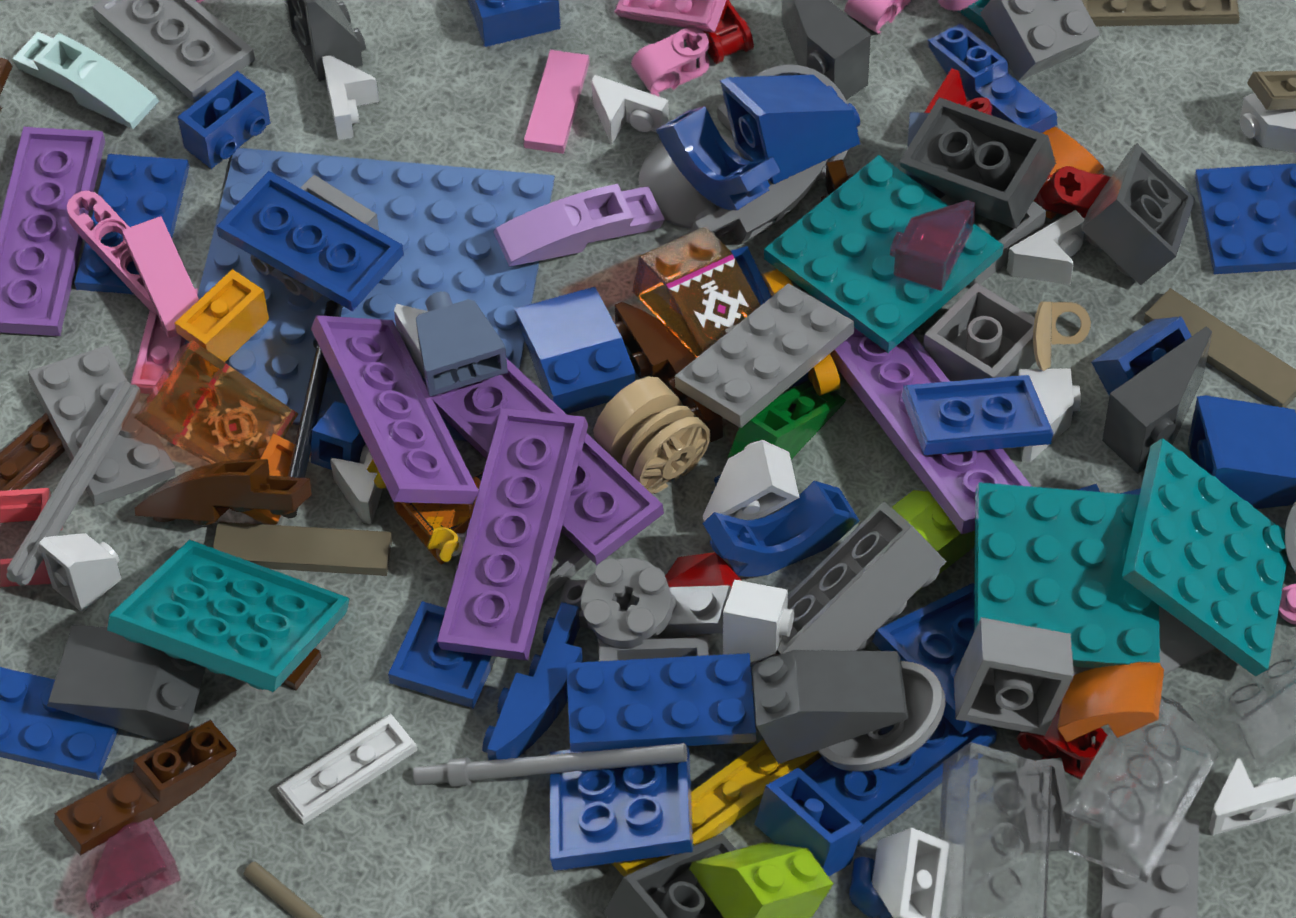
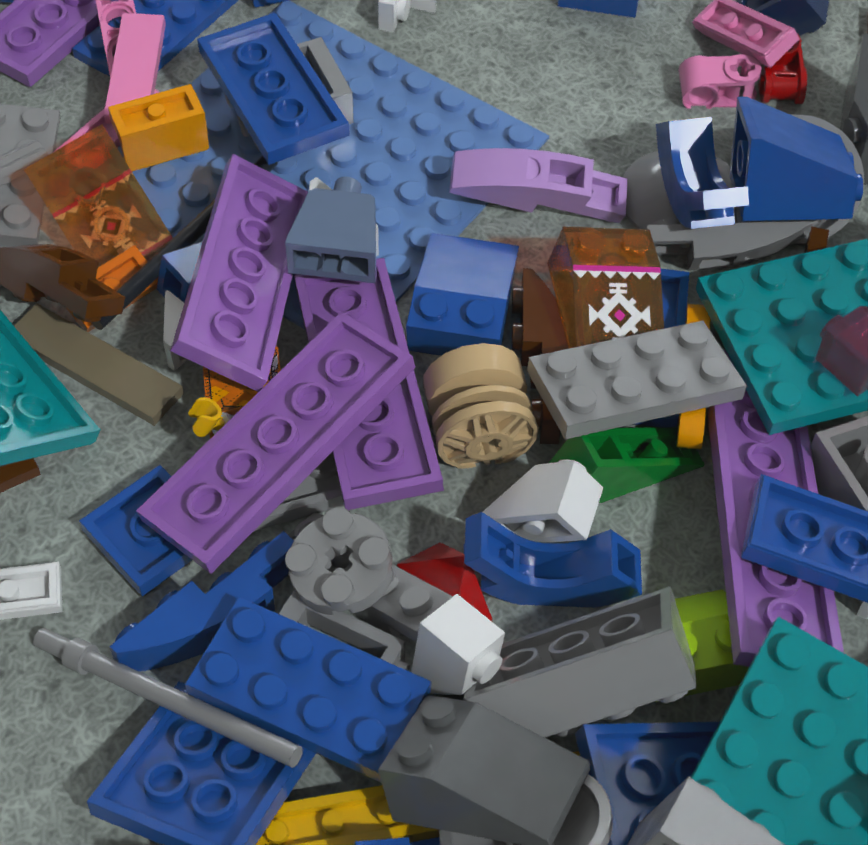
camera: 25 degrees right, 0 degrees up
(556, 101) = (591, 75): bright pink tile -> none
(621, 104) = (649, 99): white slope -> none

